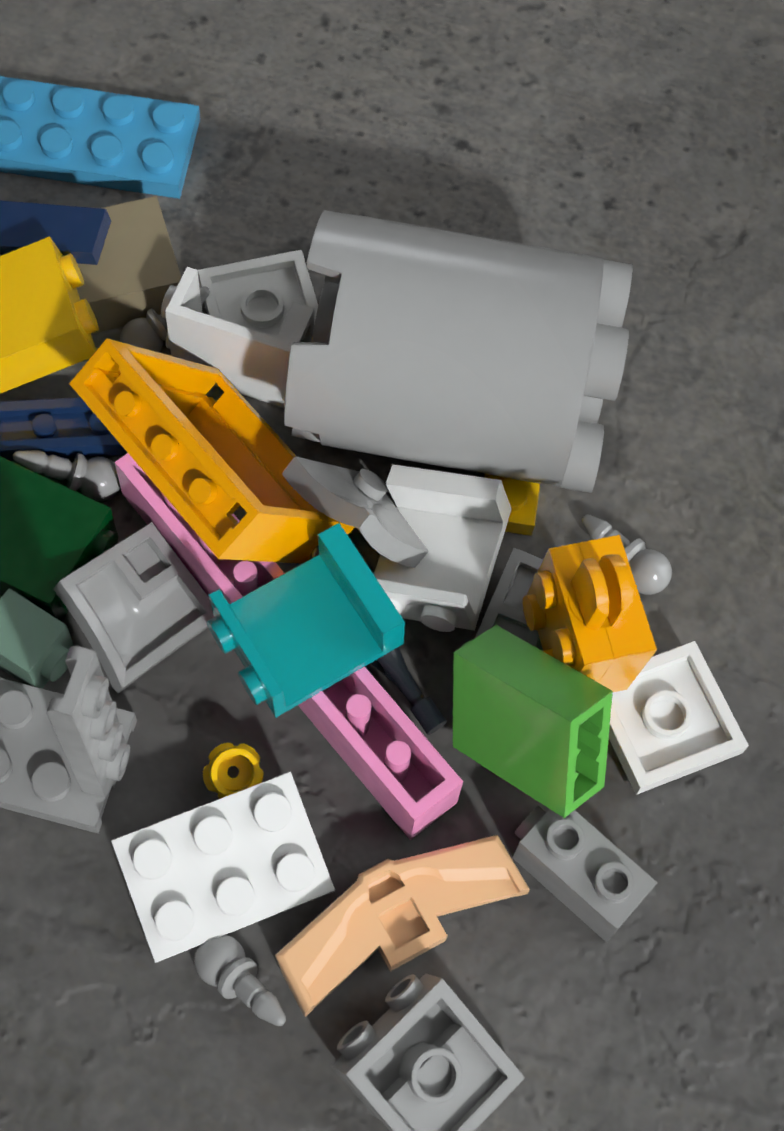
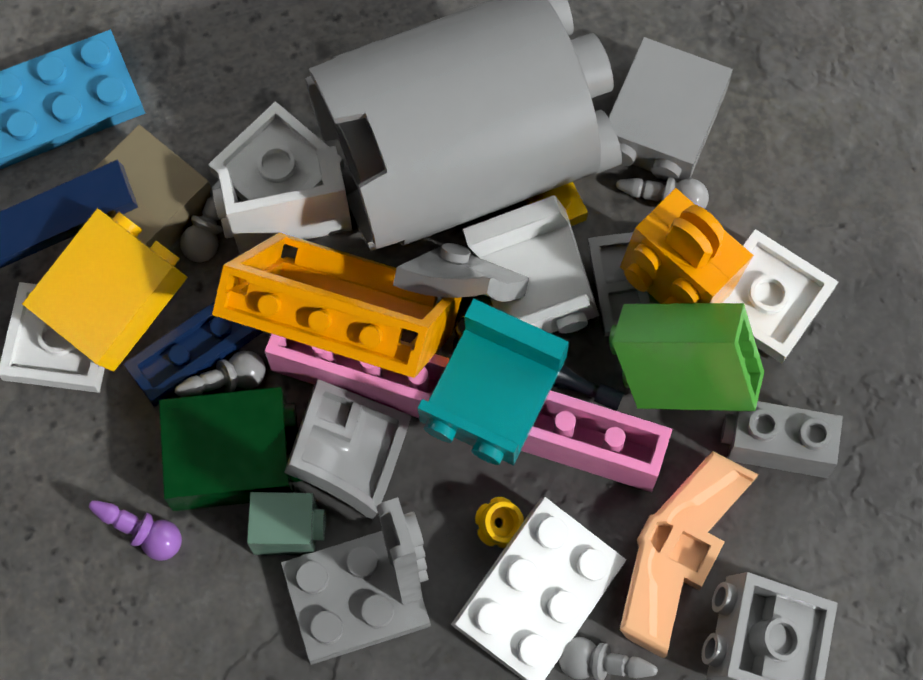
camera: 25 degrees left, 5 degrees up
(680, 474) = (667, 109): none -> light grey brick

